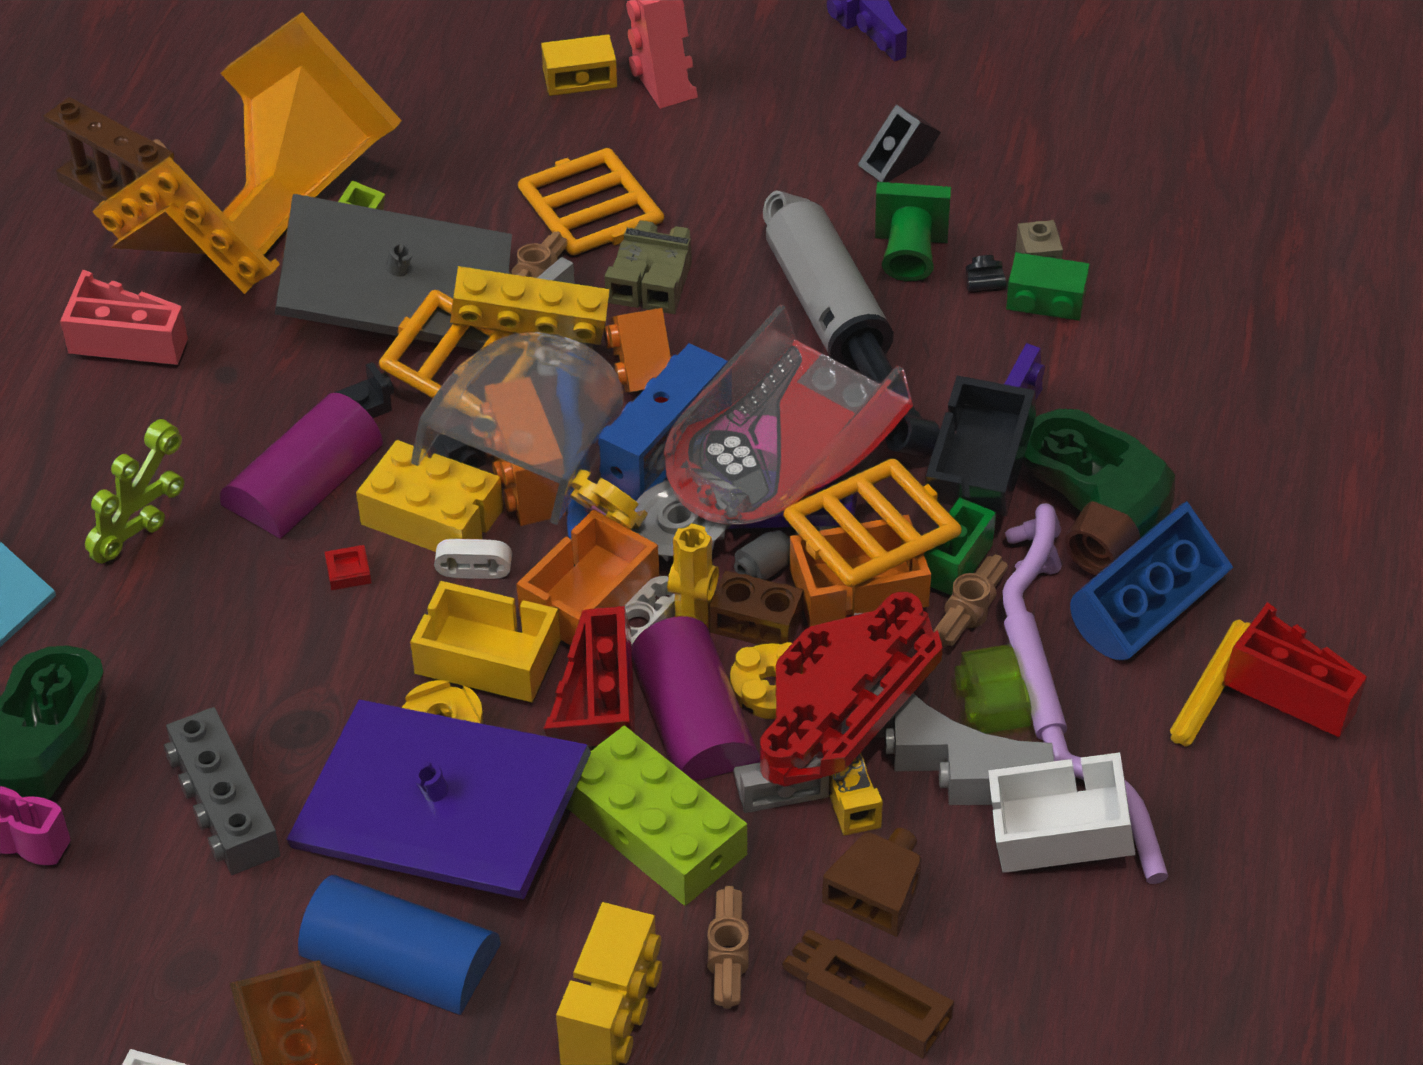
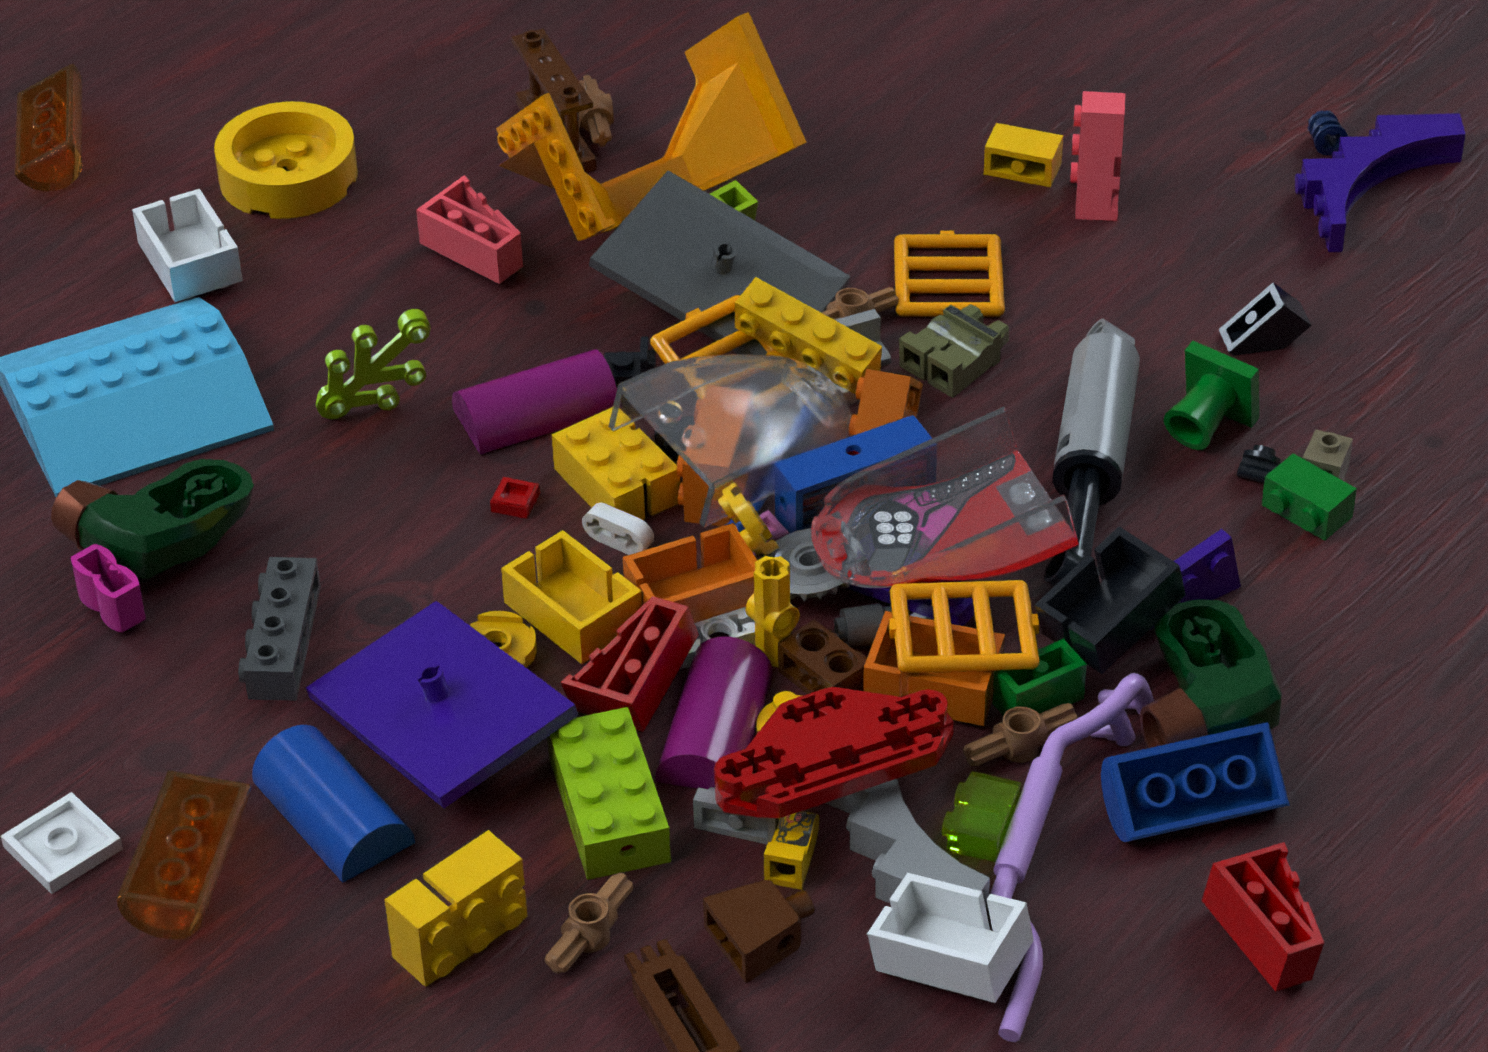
camera: 30 degrees right, 5 degrees down
(1207, 689) = (1163, 909): yellow axle -> none

